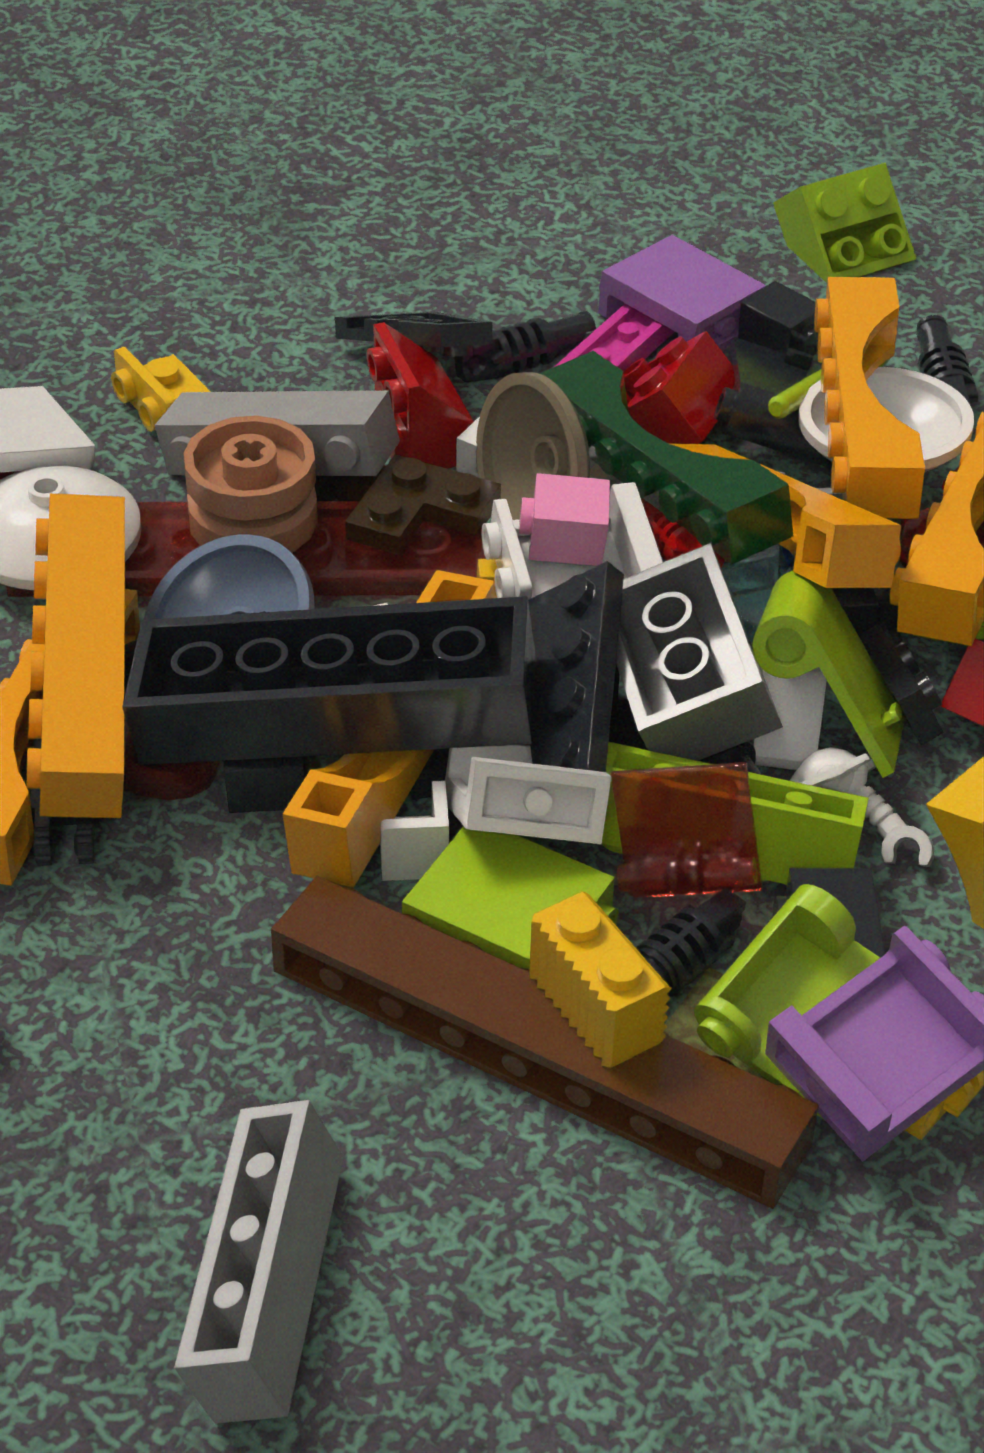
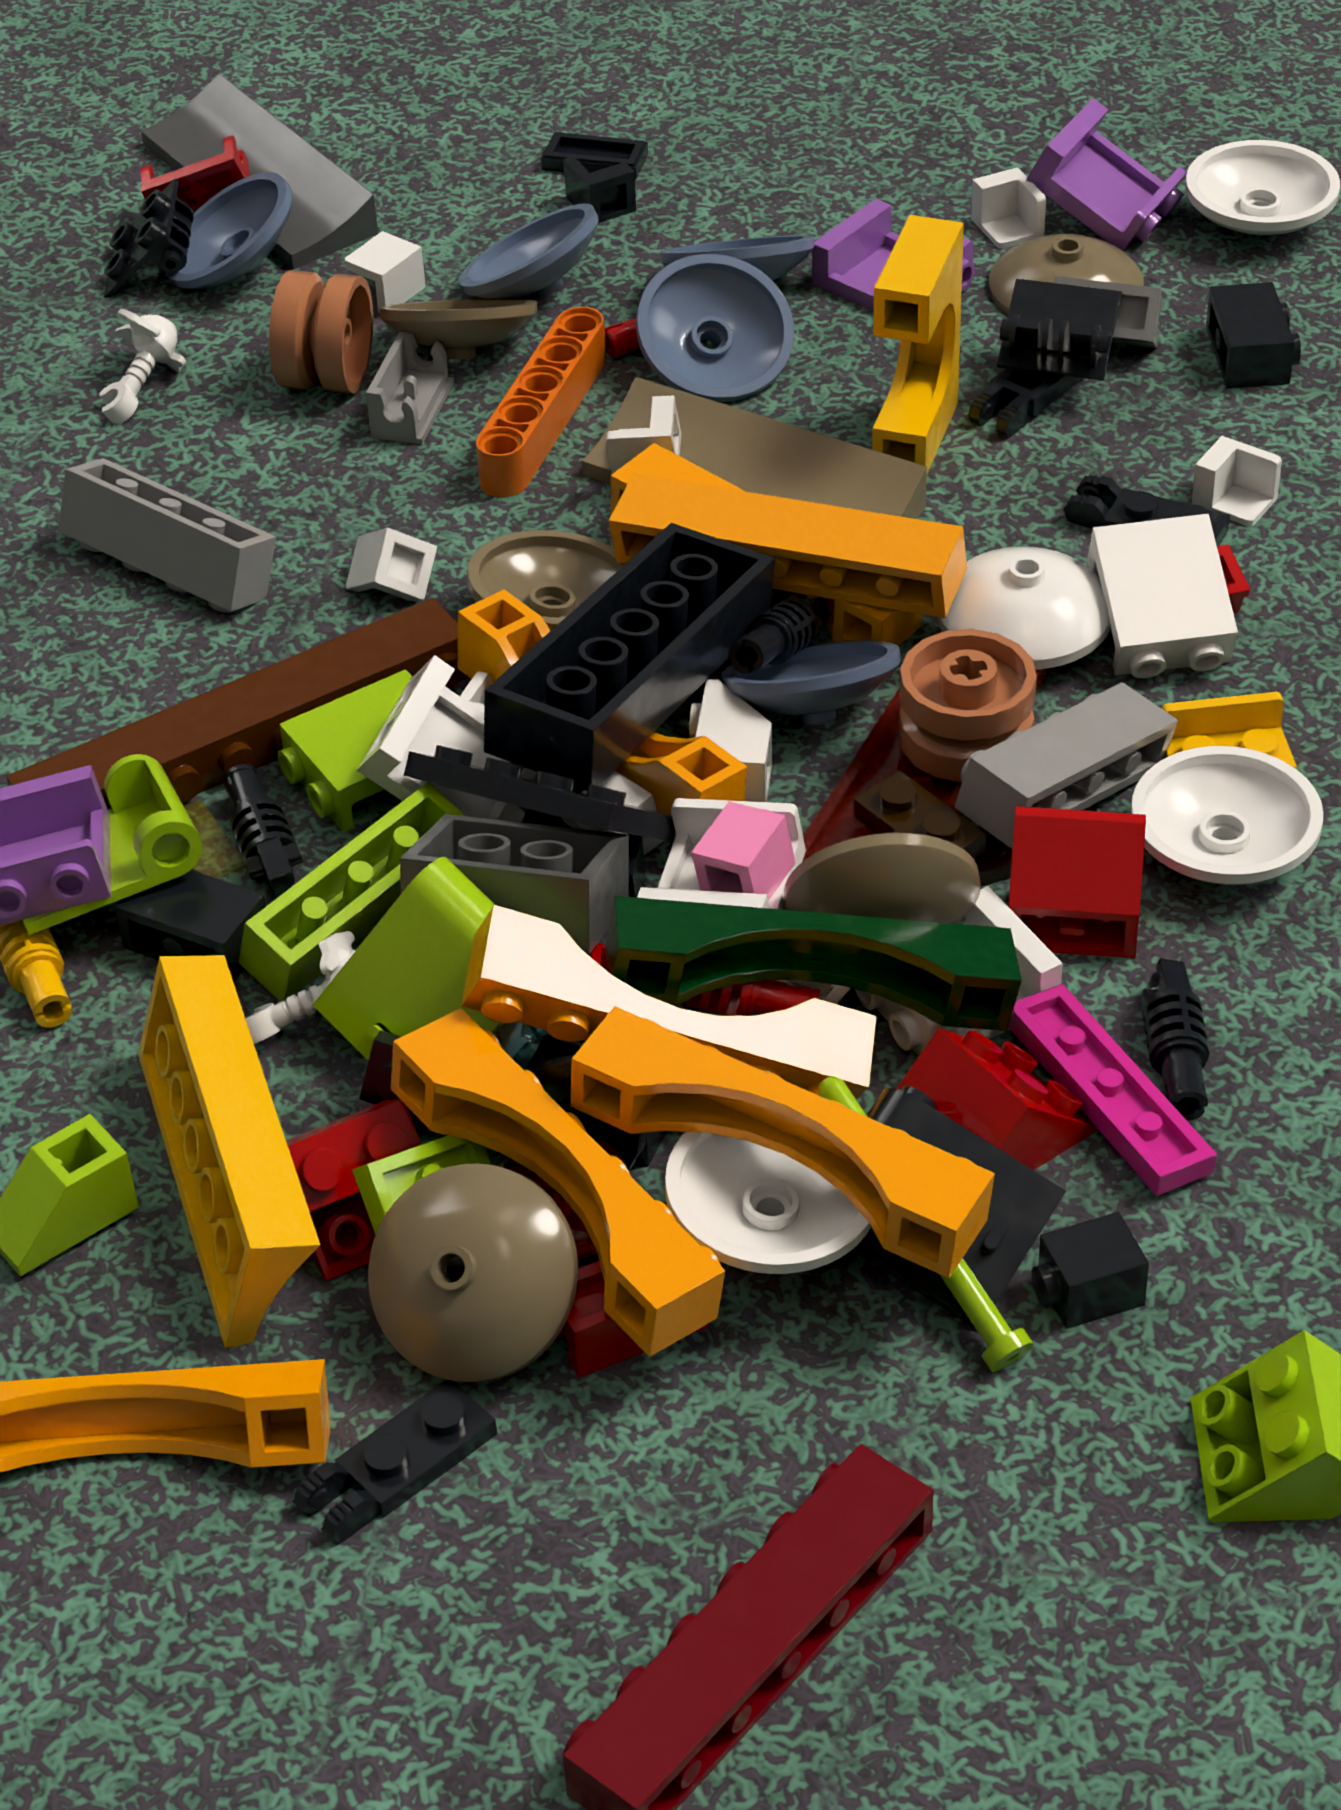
camera: 120 degrees right, 0 degrees up
(187, 849) = (543, 570): none -> dark tan dish
(195, 1035) = (391, 564): none -> white panel
(282, 346) = (1228, 814): none -> white dish
(430, 330) = (1208, 927): black wing -> none
(598, 979) = (216, 705): yellow brick -> none
(679, 289) = (1192, 1186): medium lavender panel -> none
(686, 830) = (321, 837): clear red hinge -> none
(943, 357) = (925, 1400): black hinge -> none

